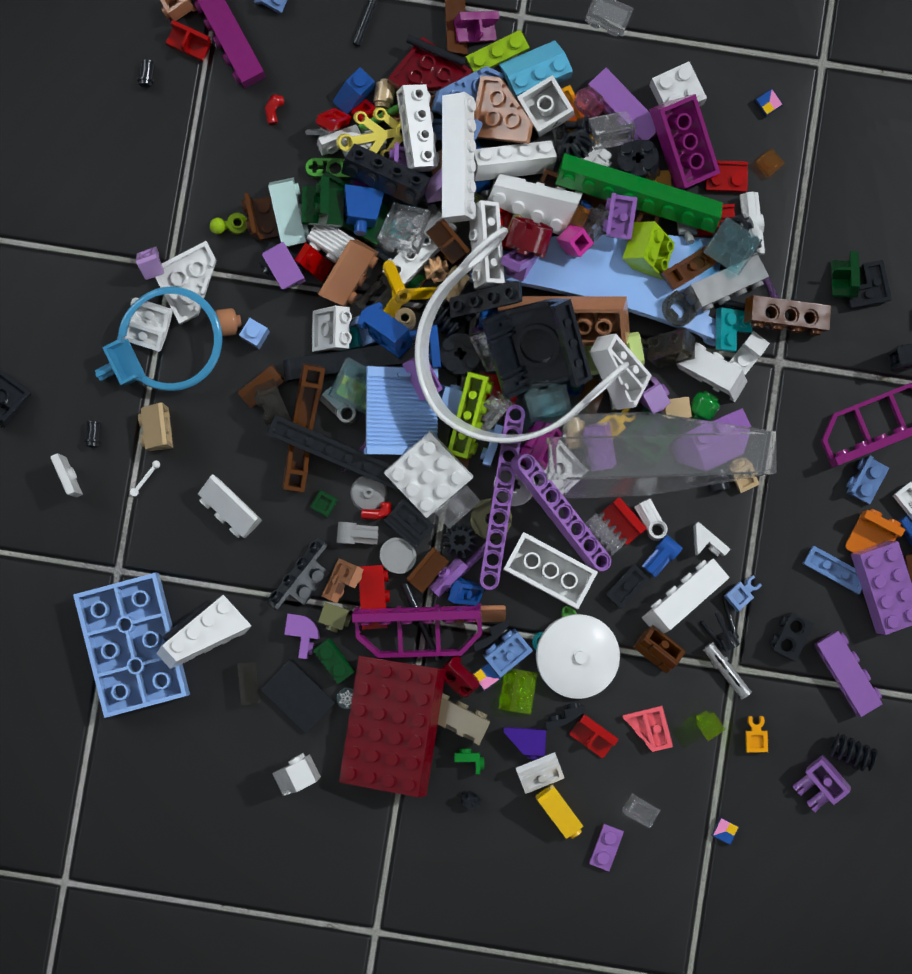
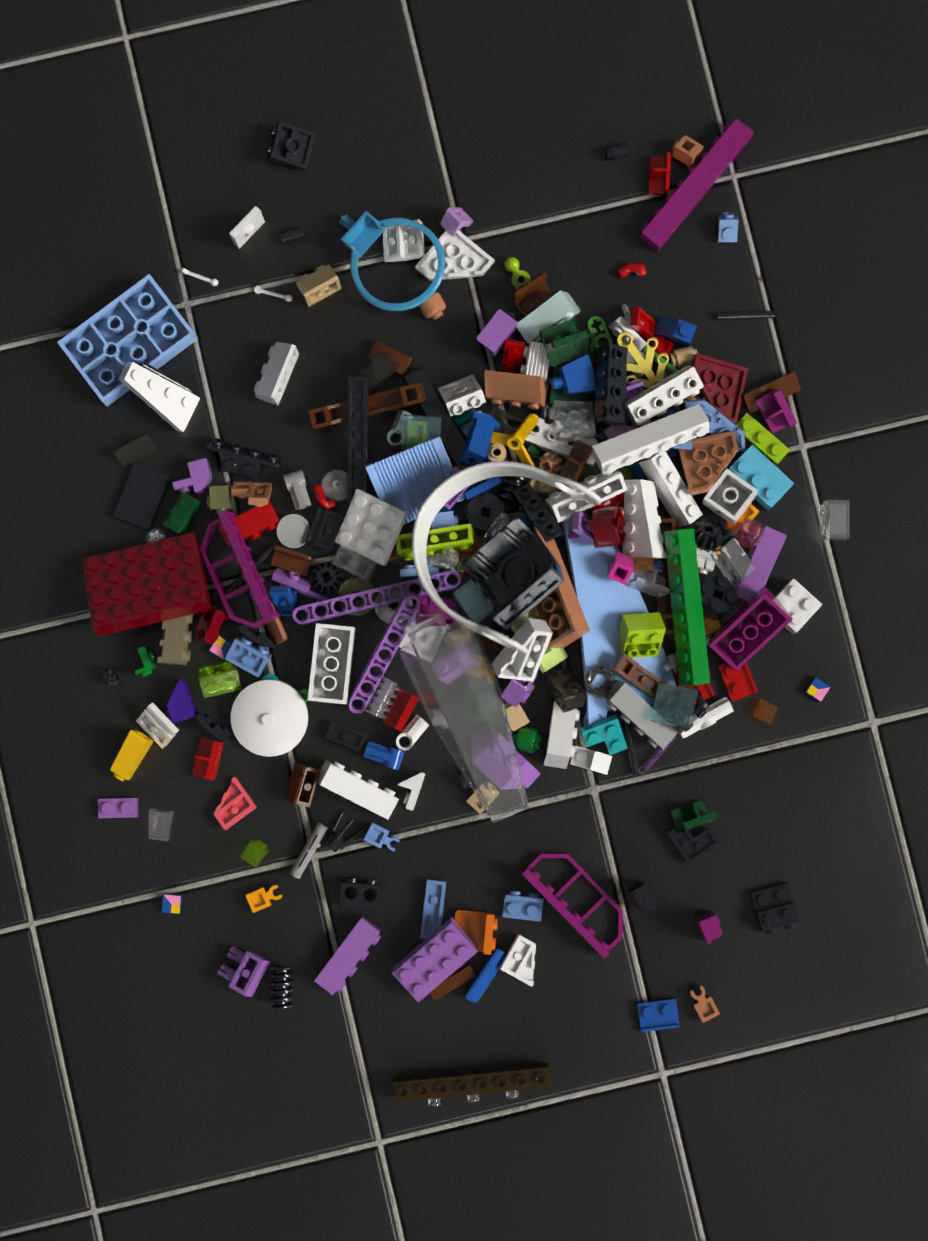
camera: 70 degrees right, 0 degrees up
(107, 533) = (214, 282): none -> white hinge
(254, 333) = (432, 333): light blue brick -> none
(297, 775) = (75, 523): white wedge -> none
(323, 503) = (312, 451): dark green tile -> none
(435, 50) = (739, 384): black bar -> none
(621, 216) = (657, 597): medium lavender bracket -> none
(817, 313) = (648, 806): reddish brown brick -> none

